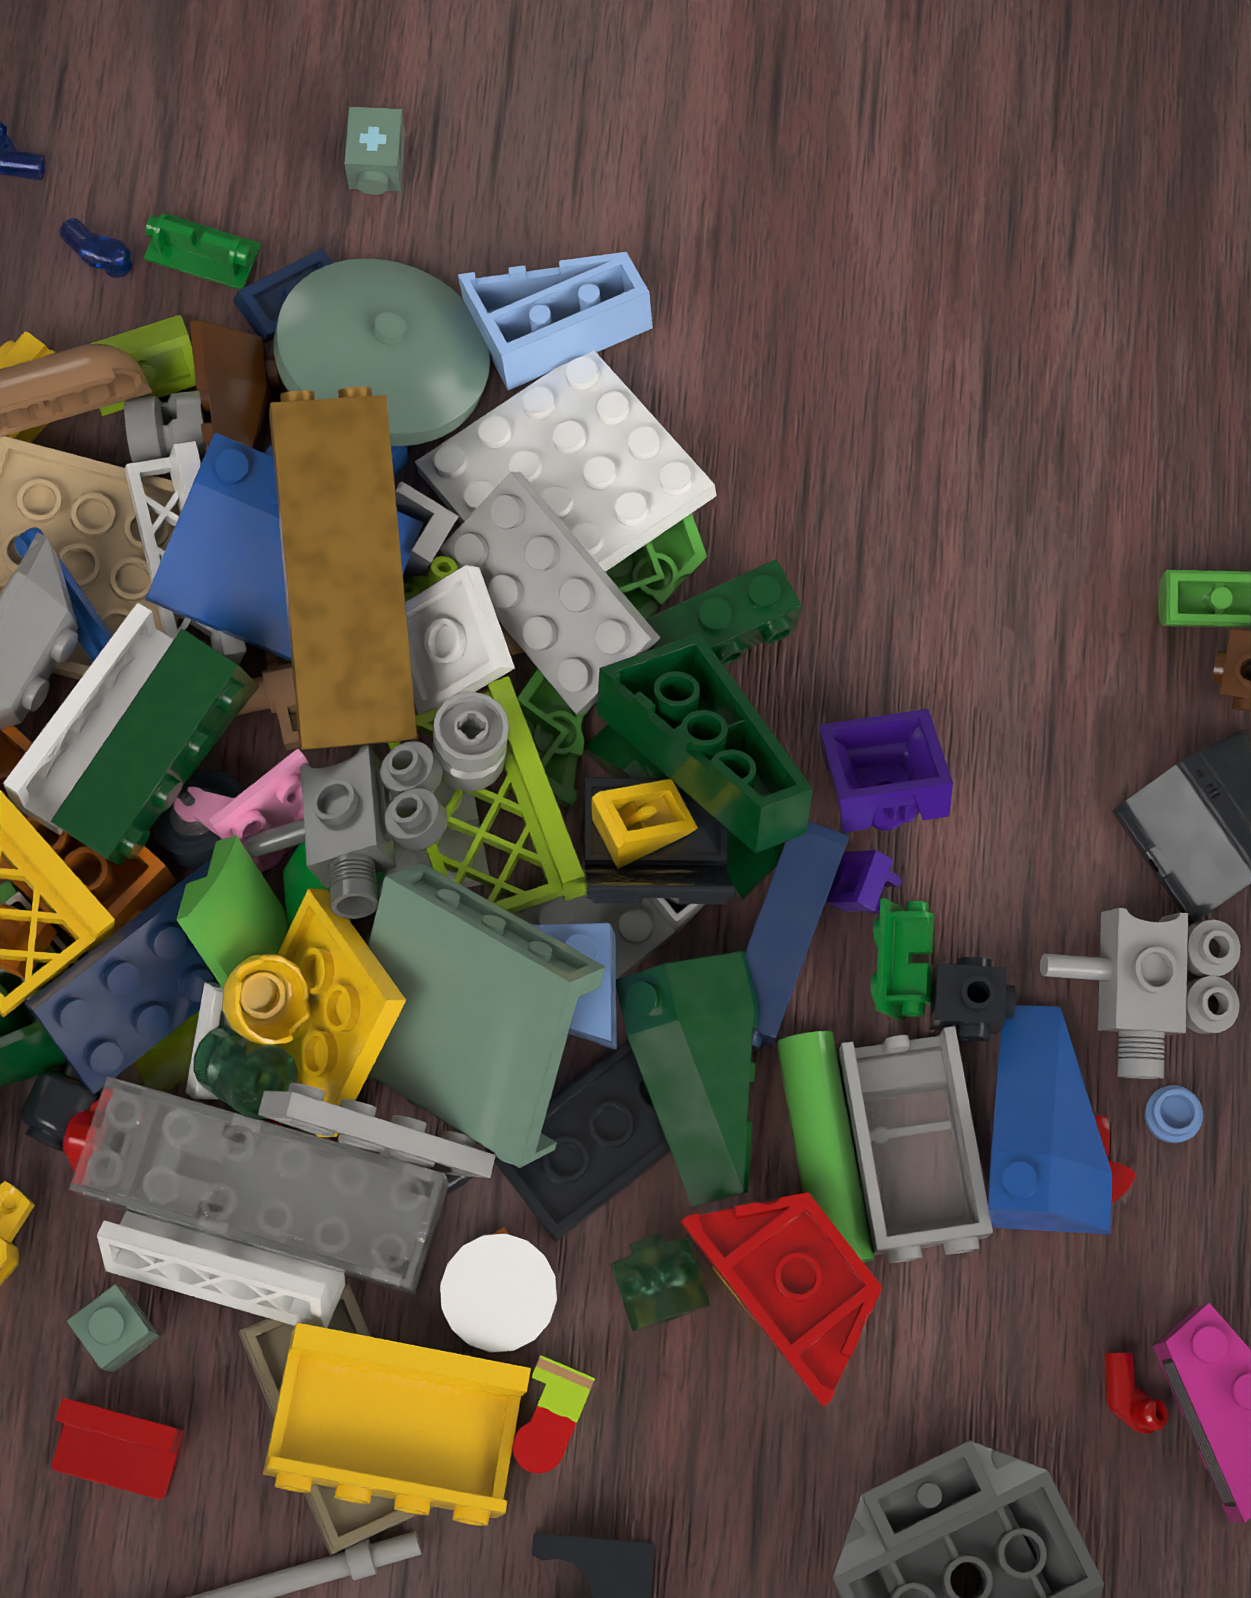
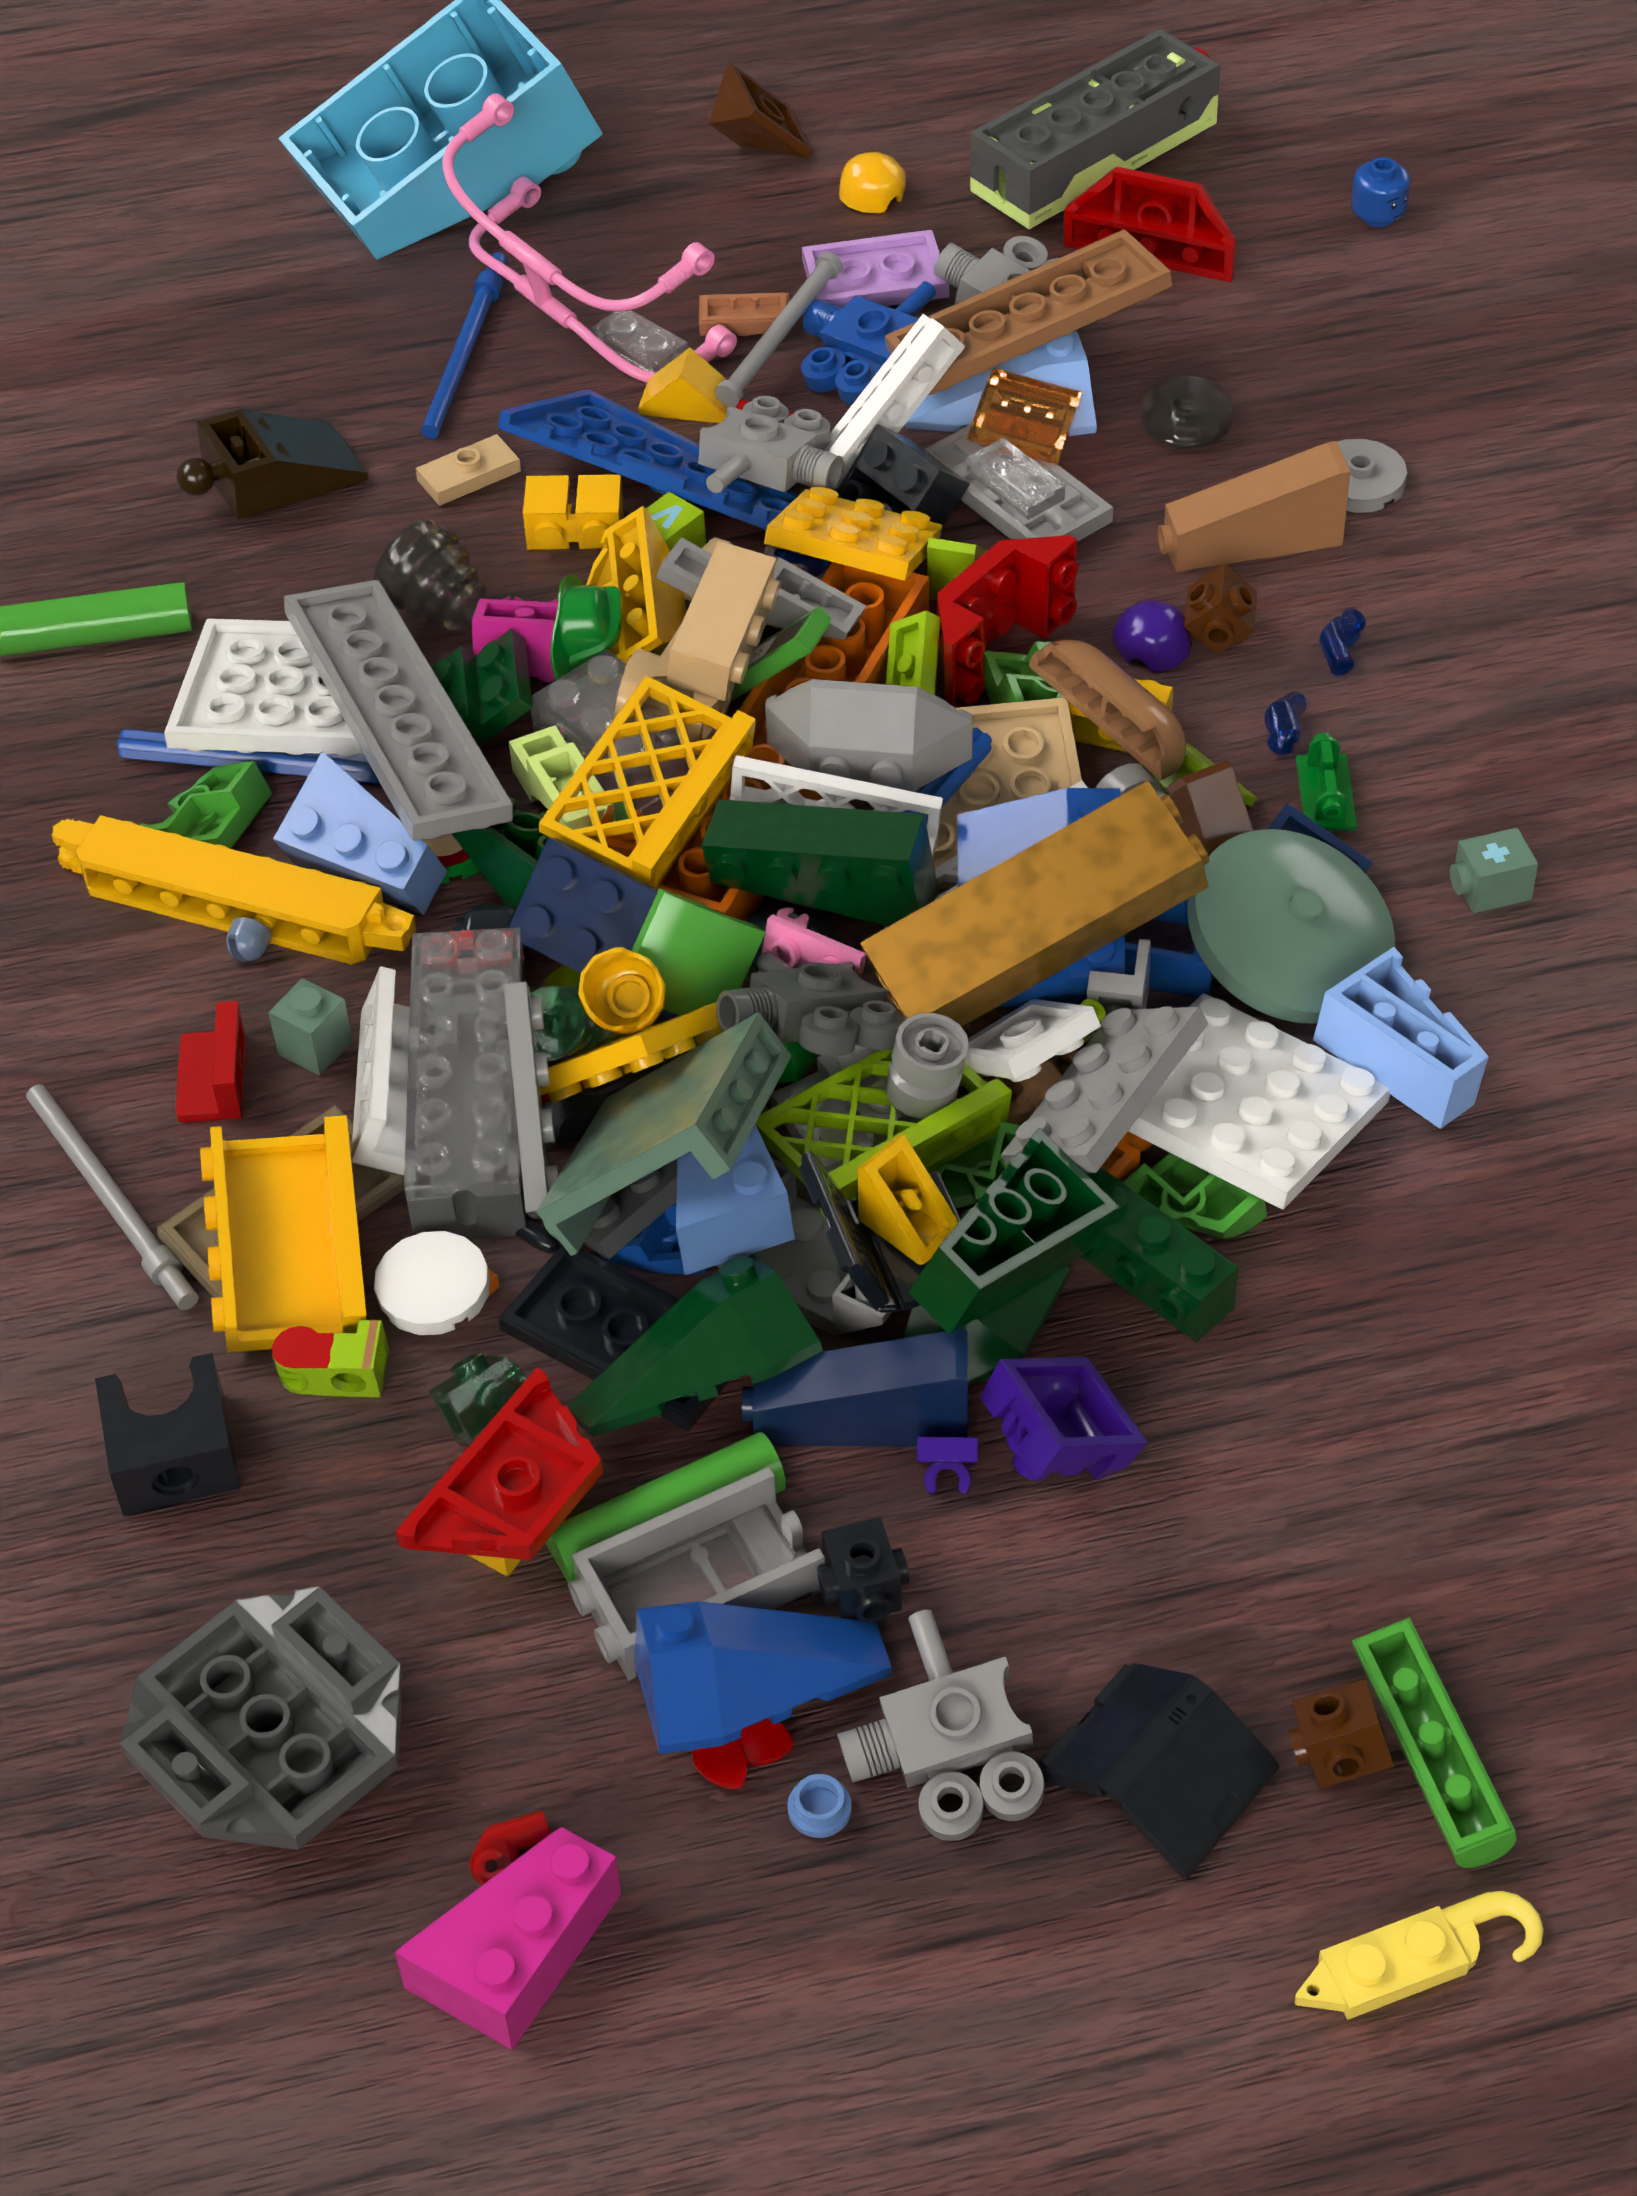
camera: 75 degrees right, 25 degrees down
(898, 984) = (896, 1496): green hinge -> none

